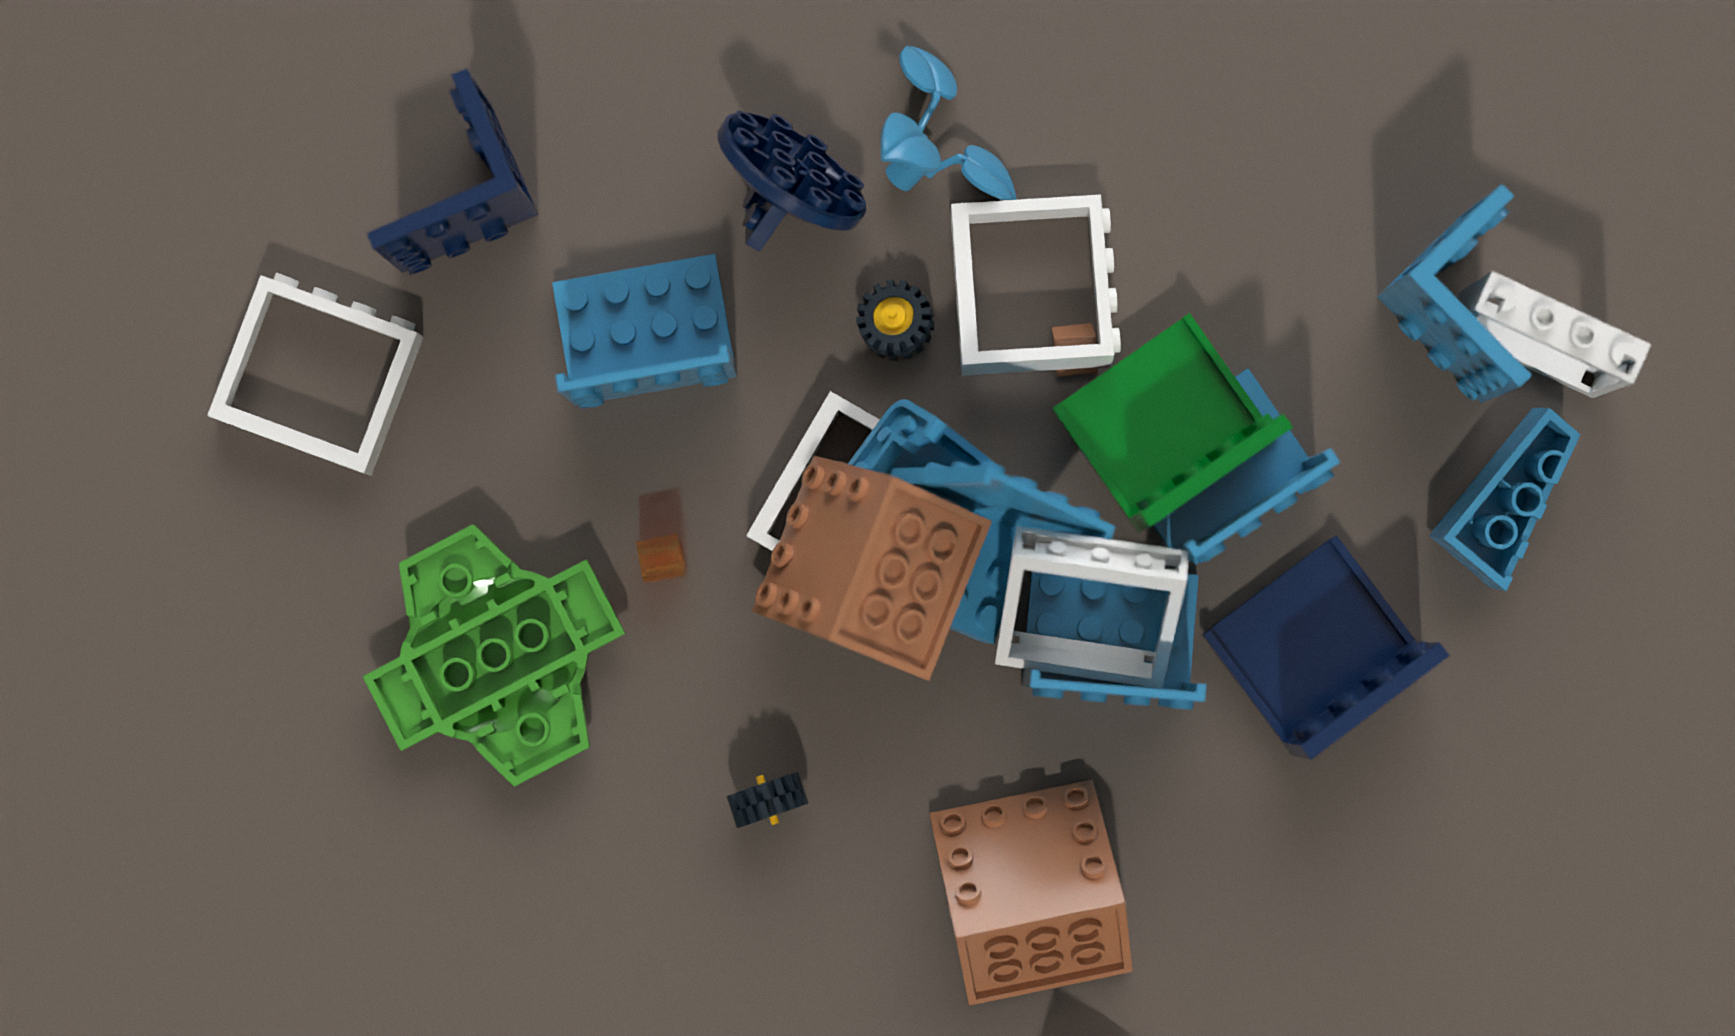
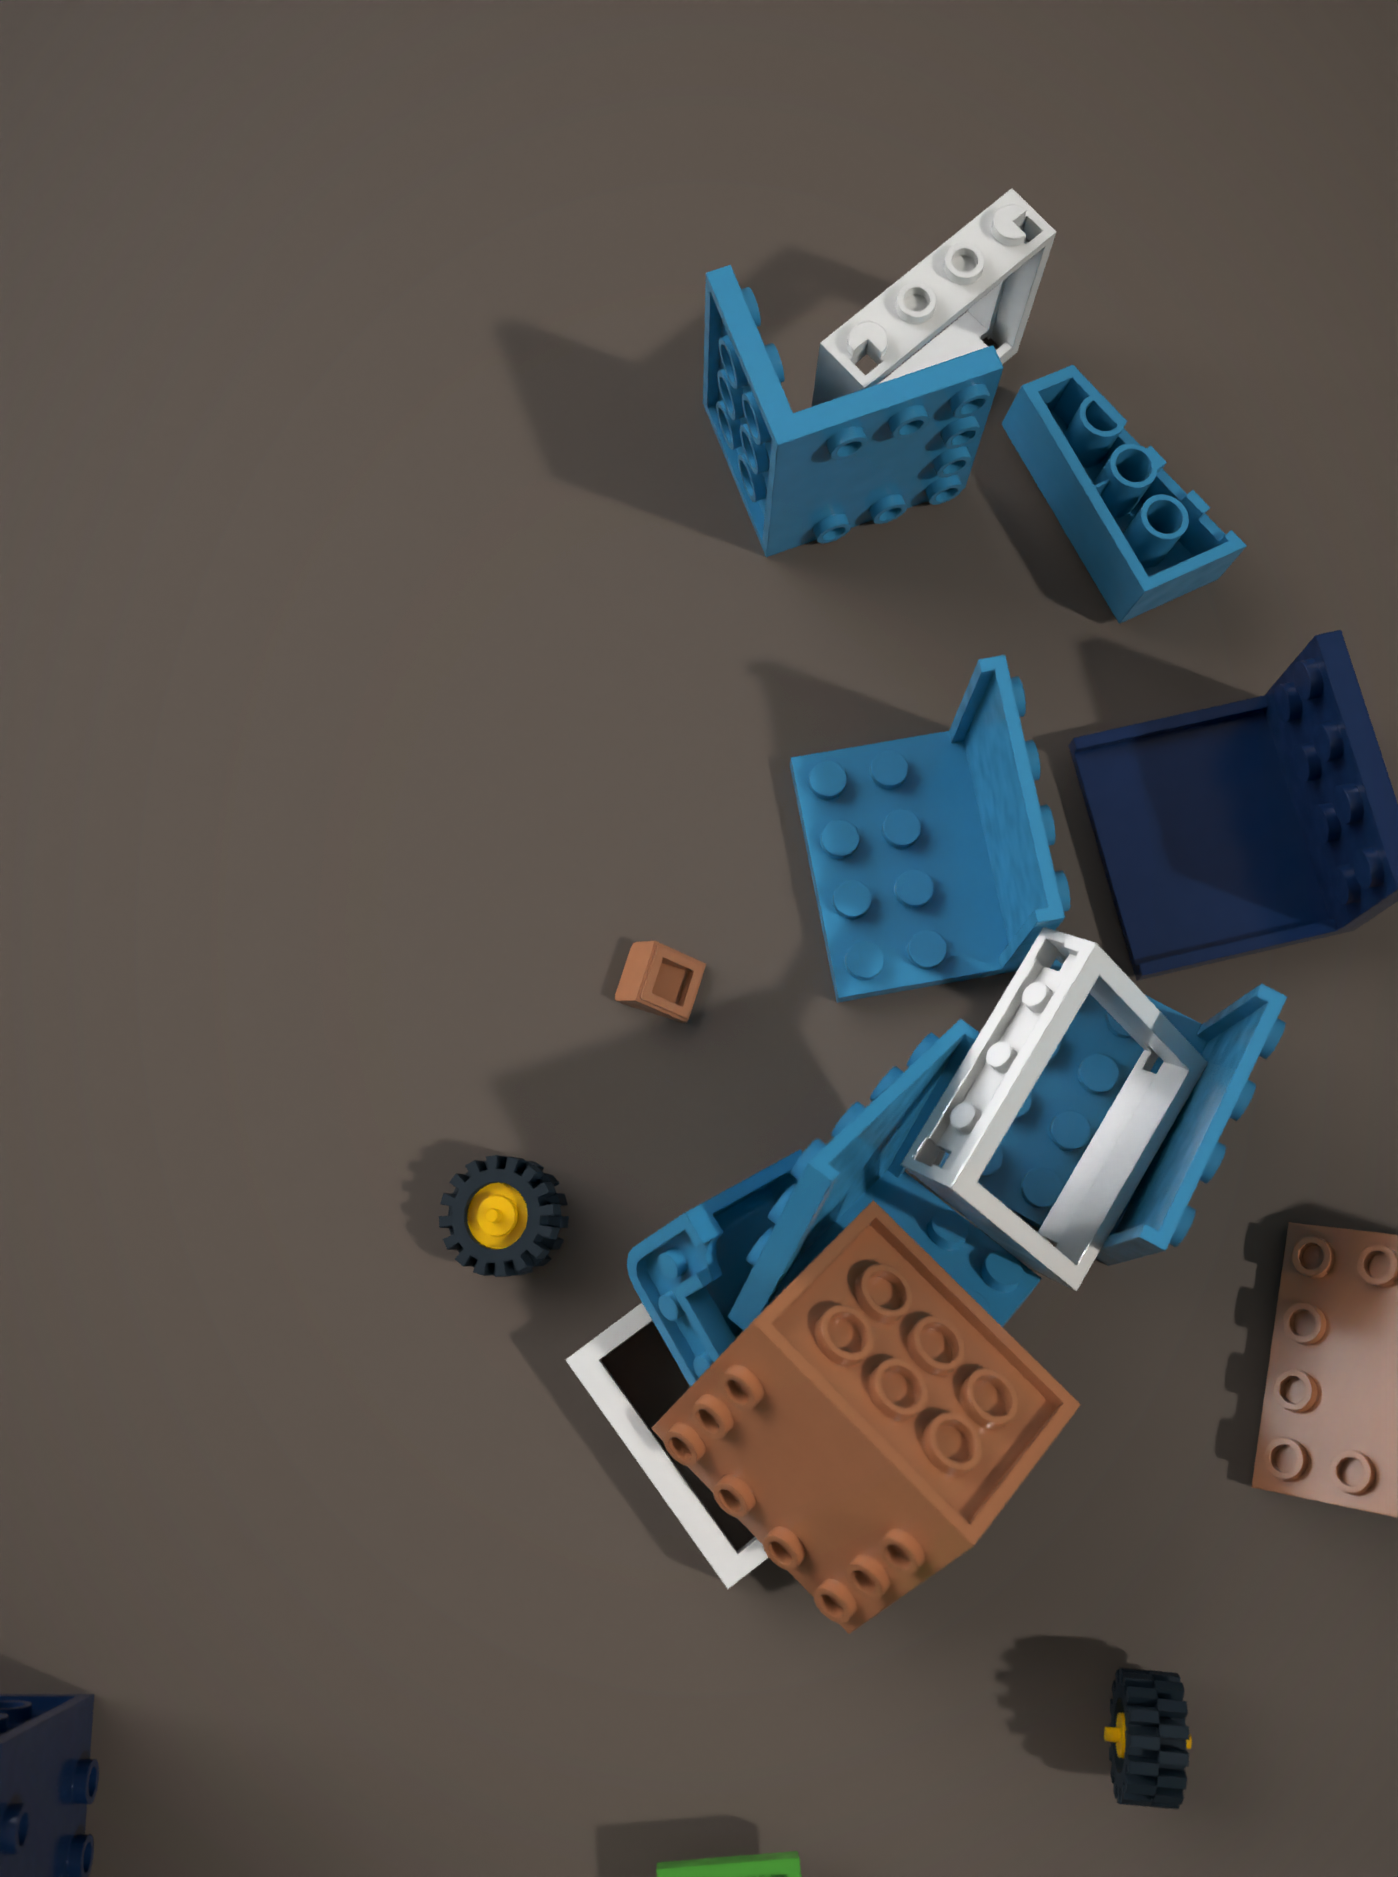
camera: 70 degrees left, 10 degrees down
(643, 331) = (346, 1615): dark azure bracket -> none
(661, 558) = (706, 1740): clear orange brick -> none
(787, 177) = (216, 1285): dark blue bracket -> none
(915, 155) = (280, 1072): dark azure plant -> none
(1044, 358) = (555, 884): white window -> none
(1166, 423) = (840, 890): green bracket -> none

